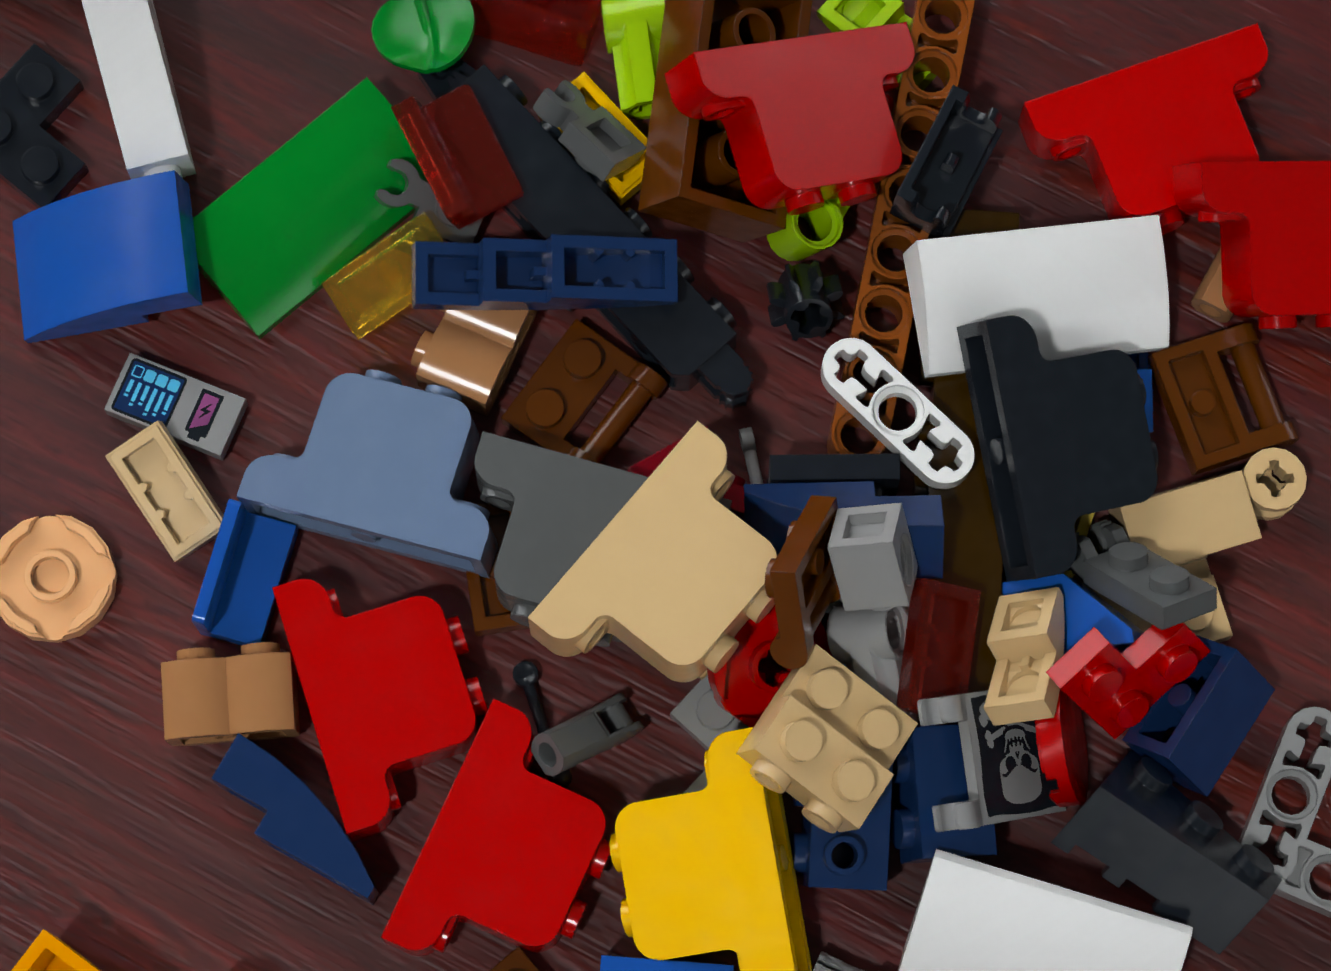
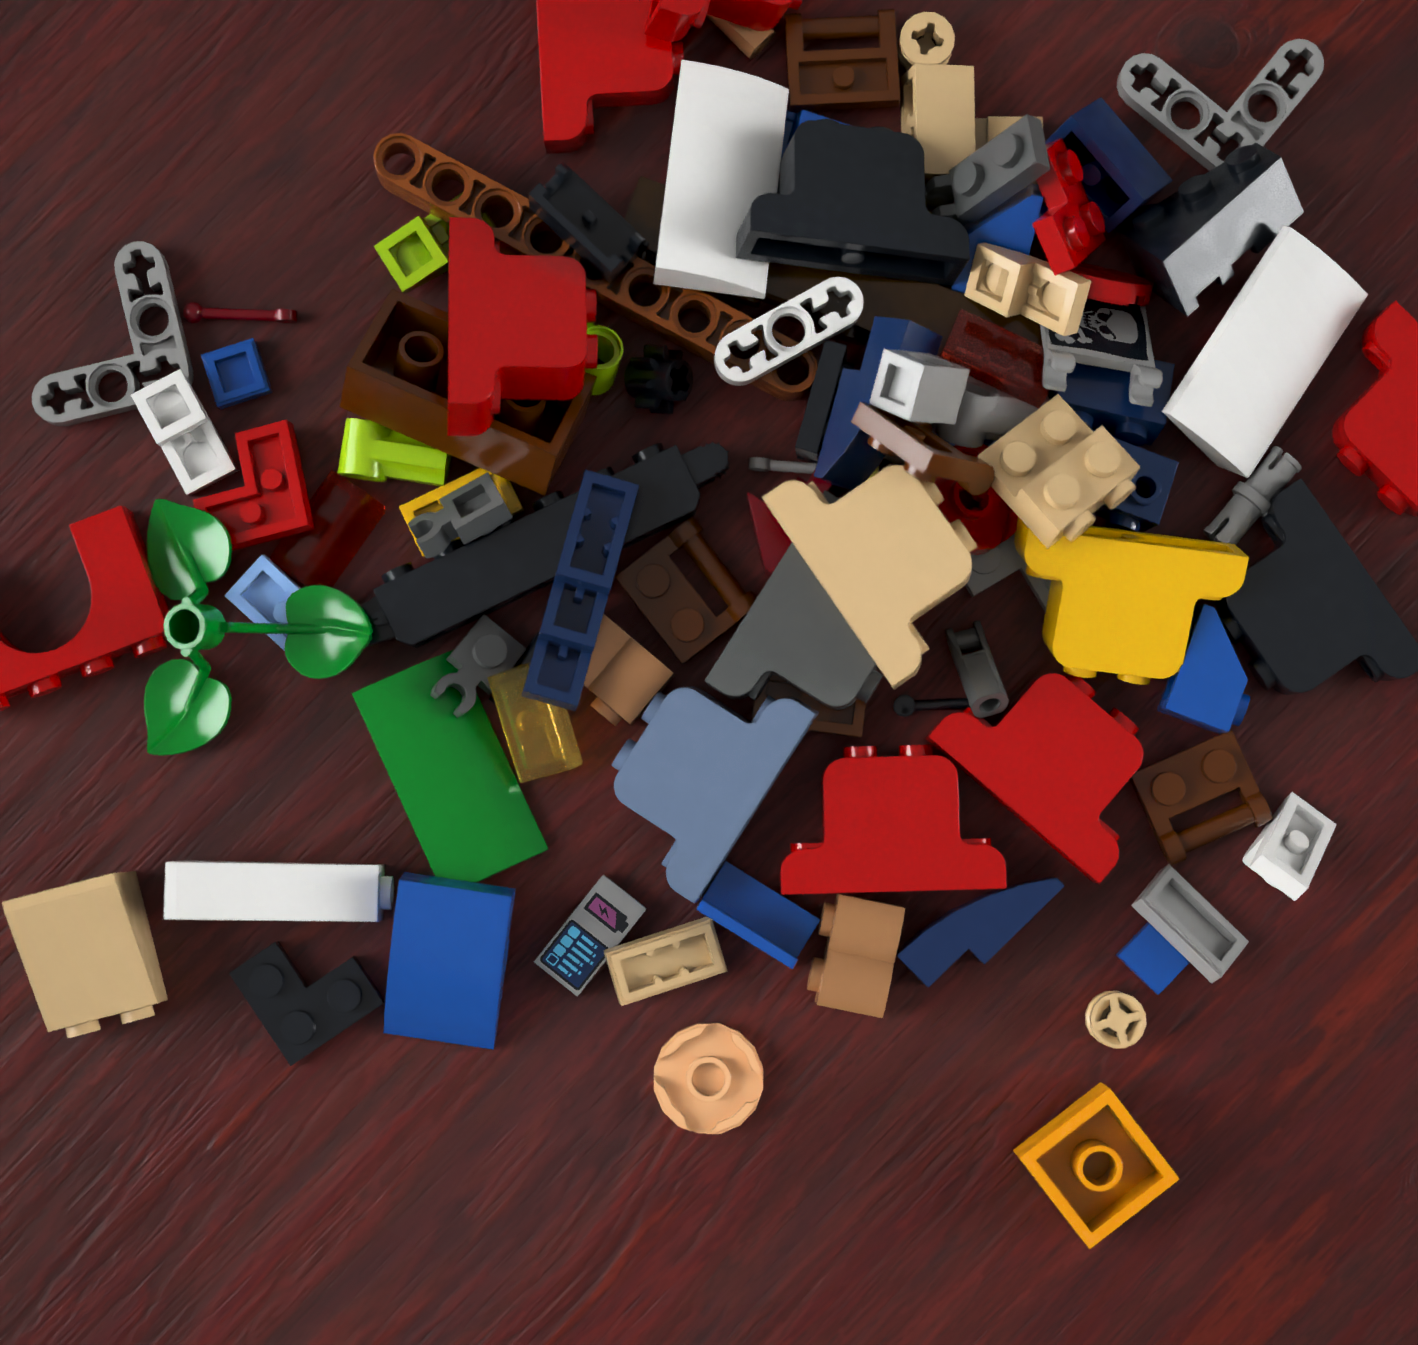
camera: 75 degrees left, 10 degrees up
(459, 155) = (451, 632): clear red panel -> none

